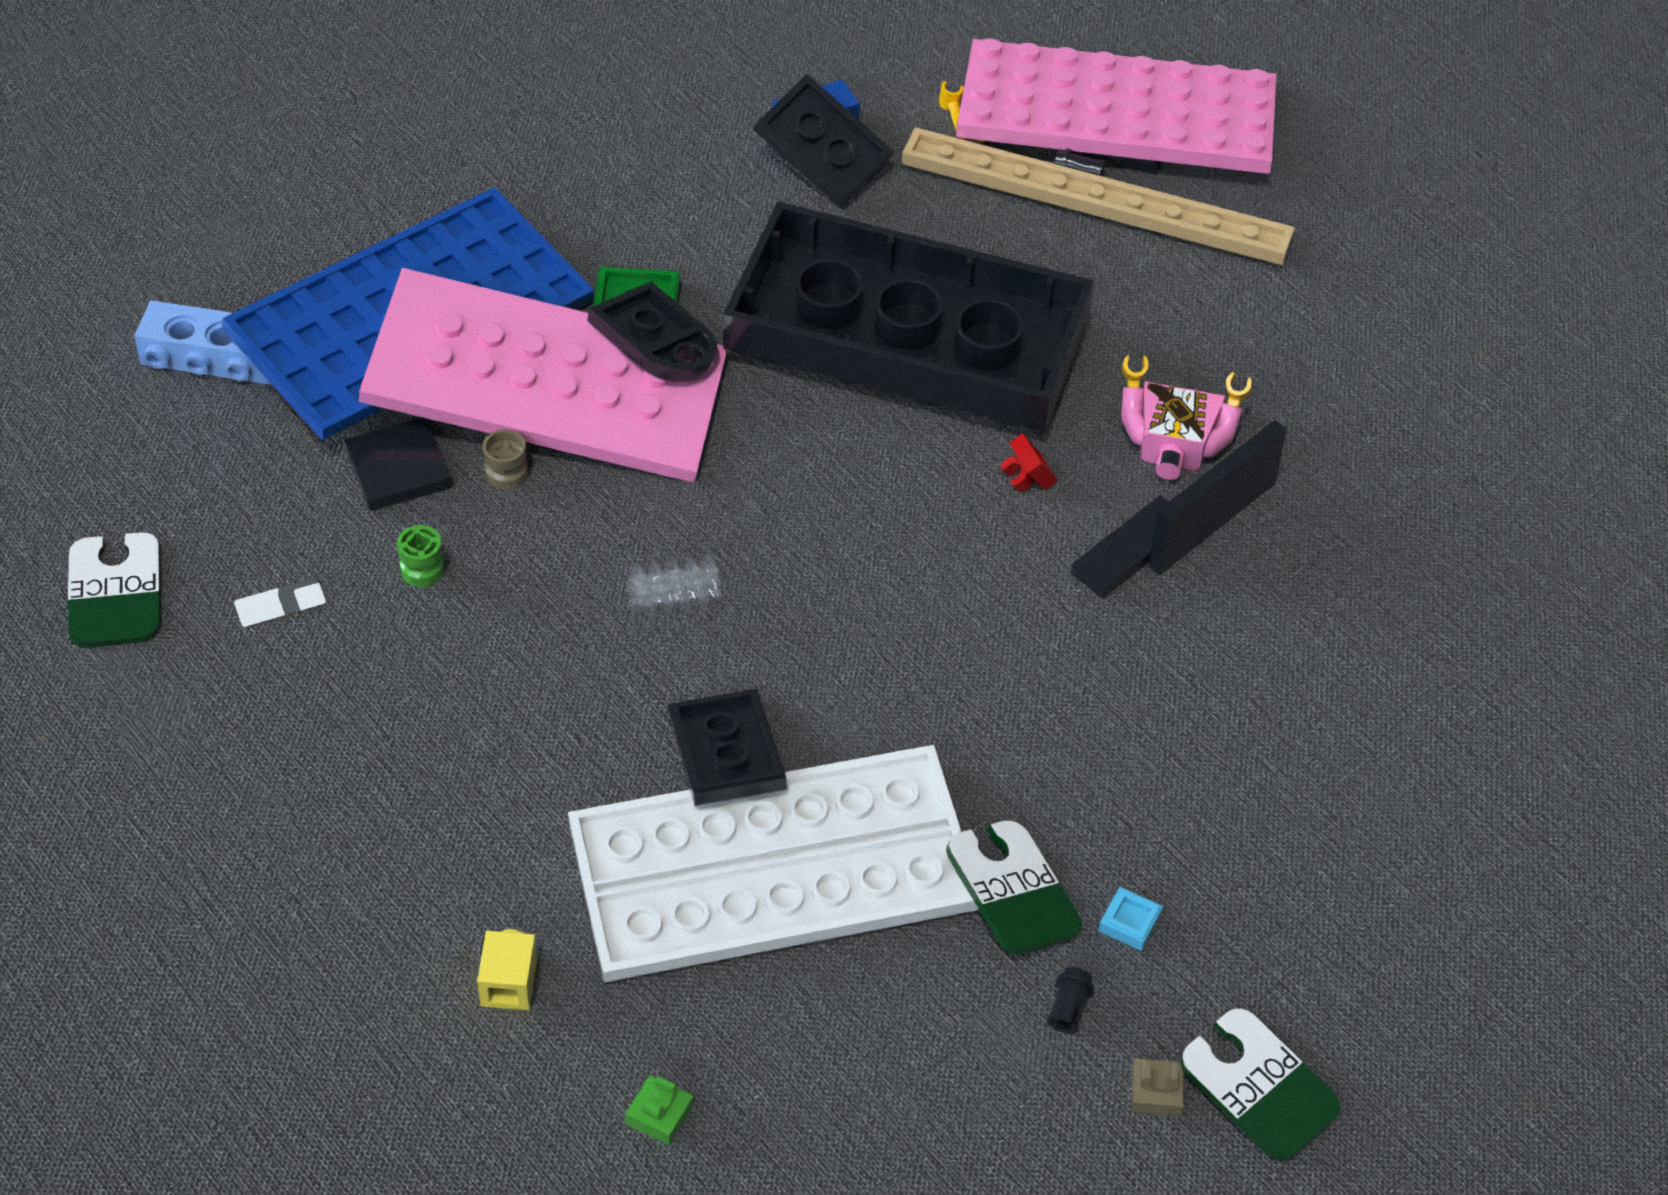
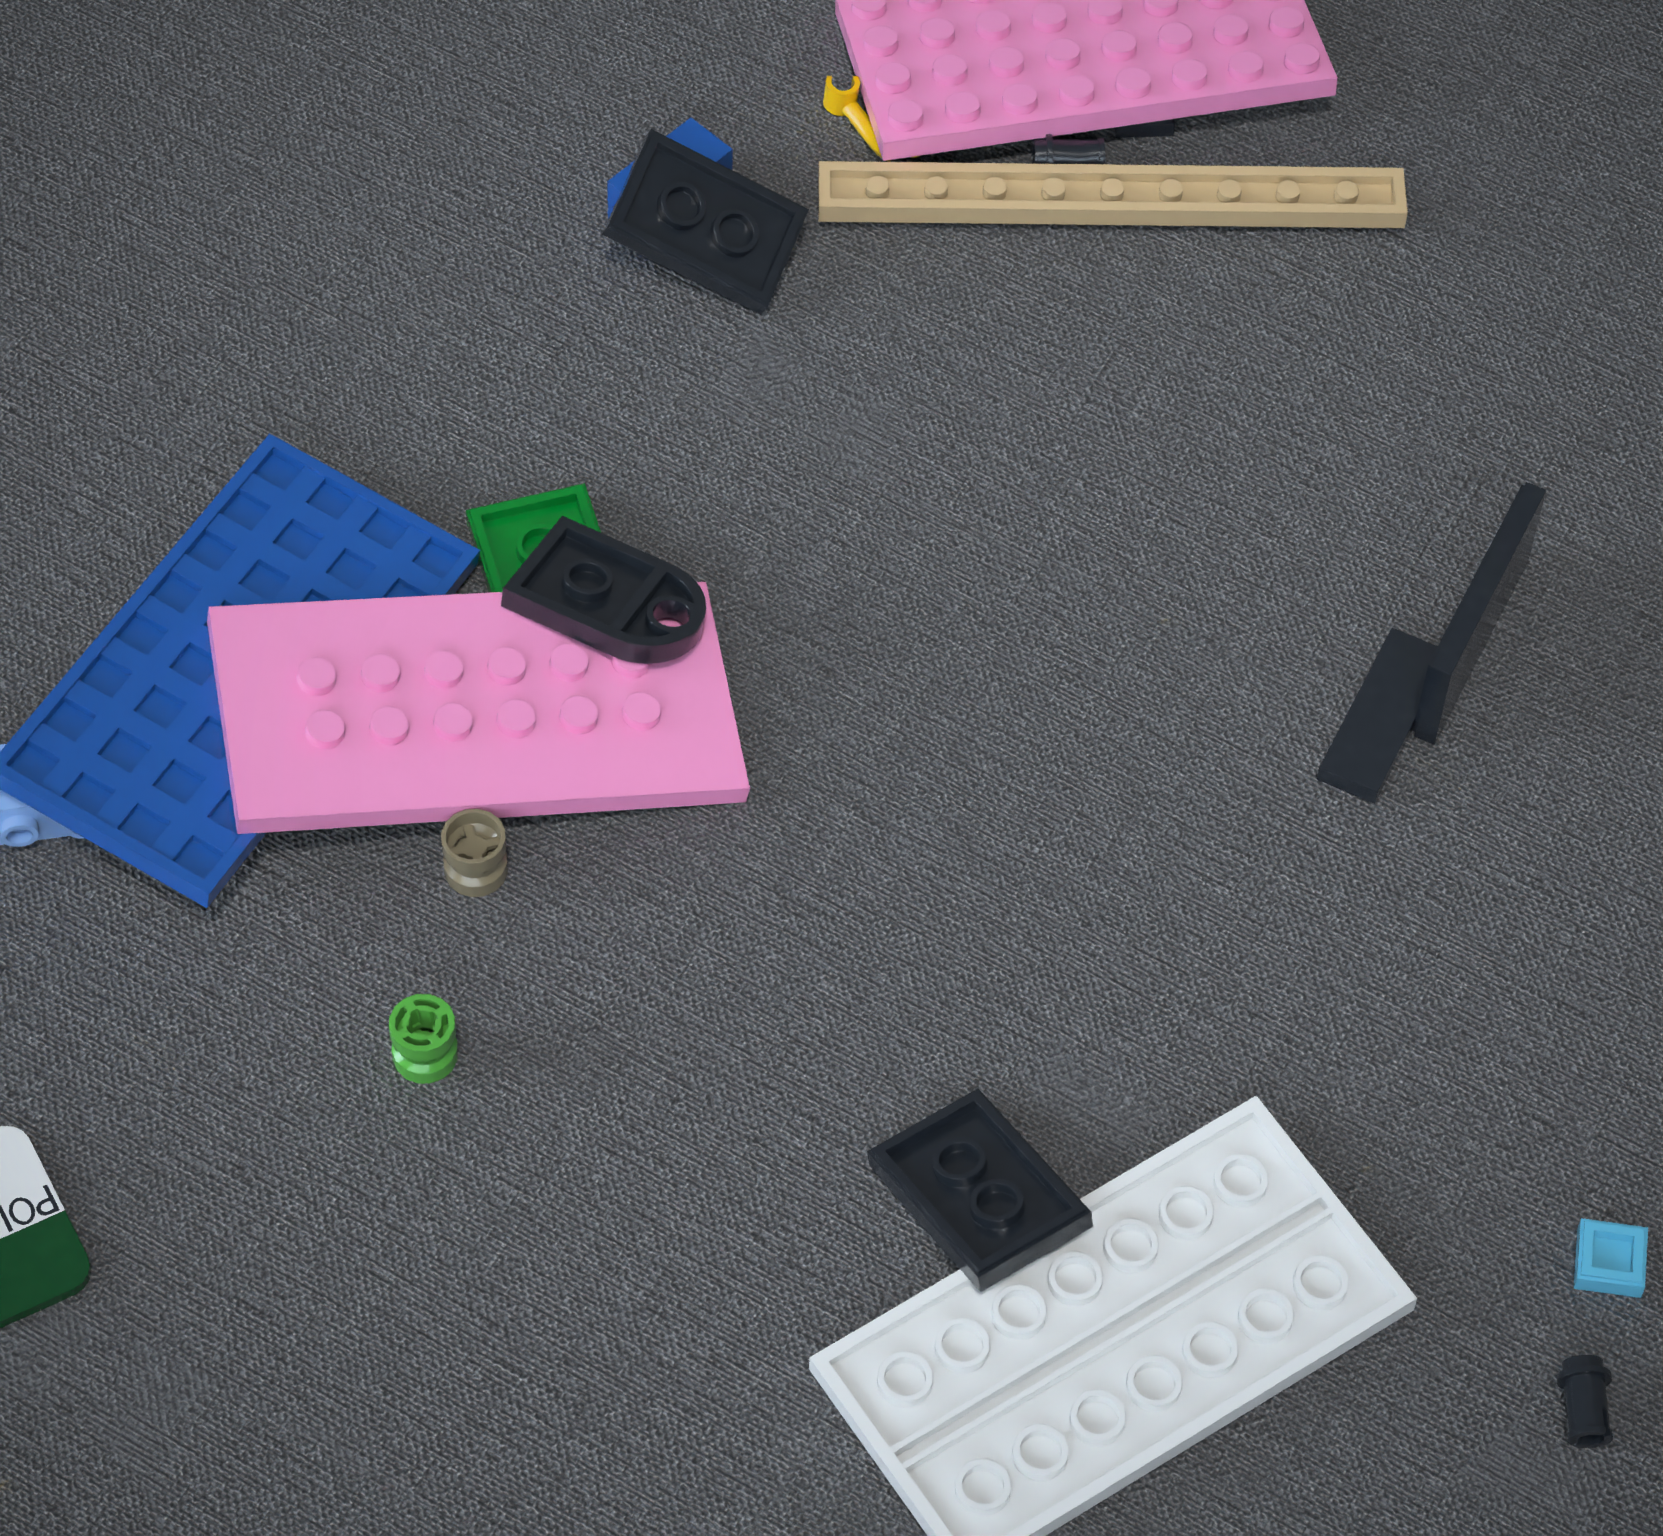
camera: 20 degrees left, 5 degrees up
(279, 602) = (245, 1170): white sticker -> none
(397, 463) = (316, 905): black tile -> none
(673, 586) = (801, 970): clear piece -> none
(908, 316) = (951, 463): black plate -> none
(1016, 894) = (1452, 1269): piece -> none
(1030, 462) = (1202, 634): red tile -> none
(1176, 423) = (1372, 515): bright pink torso -> none

